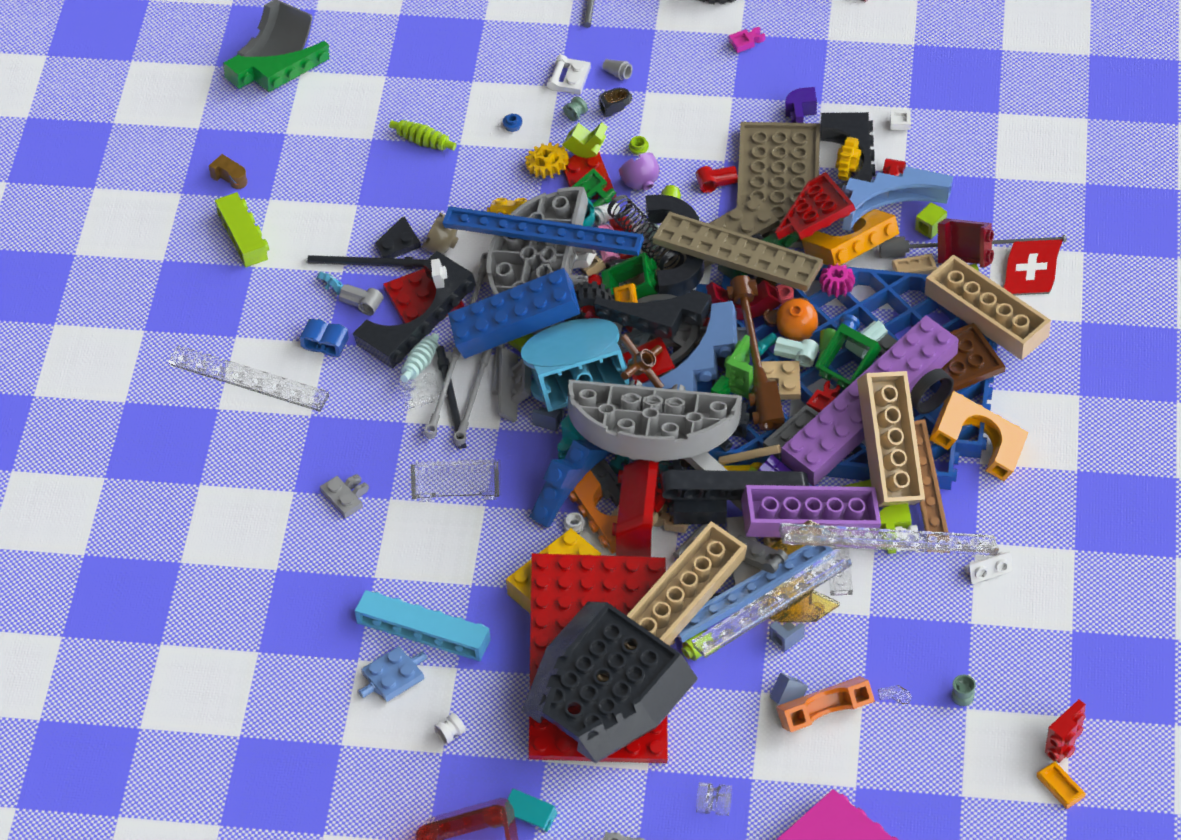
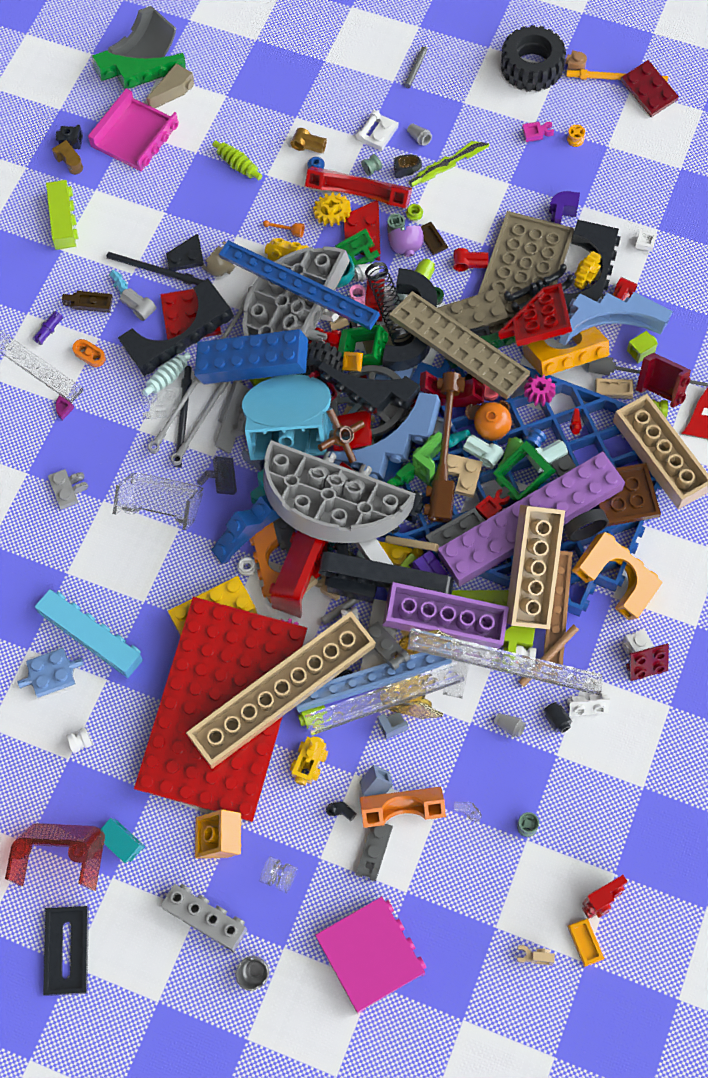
camera: 15 degrees right, 15 degrees up
(223, 147) = (71, 134): none -> black brick
(266, 344) = (47, 327): none -> dark purple pin
(292, 132) = (132, 131): none -> dark pink panel
(303, 308) = (88, 301): none -> dark brown hinge
(312, 418) = (63, 407): none -> magenta tile
(323, 77) = (172, 86): none -> dark tan slope
(324, 337) = (96, 332): blue brick -> none
(324, 358) = (90, 354): none -> orange plate
(438, 273) = (200, 302): white plate -> none
(490, 100) = (304, 140): none -> pearl gold piece
(514, 189) = (296, 229): none -> orange hinge
(518, 440) = (223, 474): none -> clear smoke plate
(557, 131) = (346, 183): none -> red arch
(584, 142) = (367, 200): lime brick -> none
(613, 713) = (241, 755): black wedge -> none
(621, 156) = (395, 221): none -> sand green wheel
(634, 779) = (218, 835): none -> light orange slope
(642, 103) = (447, 163): none -> lime sword
(669, 168) = (433, 239): none -> dark brown tile
(708, 692) = (311, 754): none -> yellow brick
(759, 725) = (340, 808): none -> black arm
(790, 35) = (576, 135): none -> light orange wheel
(798, 185) = (535, 287): none -> black piece
(808, 755) = (374, 851): none -> dark grey plate
(885, 303) = (575, 424): none -> red bar
(913, 603) = (510, 724): none -> light grey cone
(934, 523) = (554, 649): none -> medium nougat bar
(960, 585) = (557, 717): none -> black brick
(1016, 808) = (542, 956): none -> tan plate
(1020, 499) = (637, 642): none -> white bracket
(1038, 509) = (648, 662): none -> dark red hinge

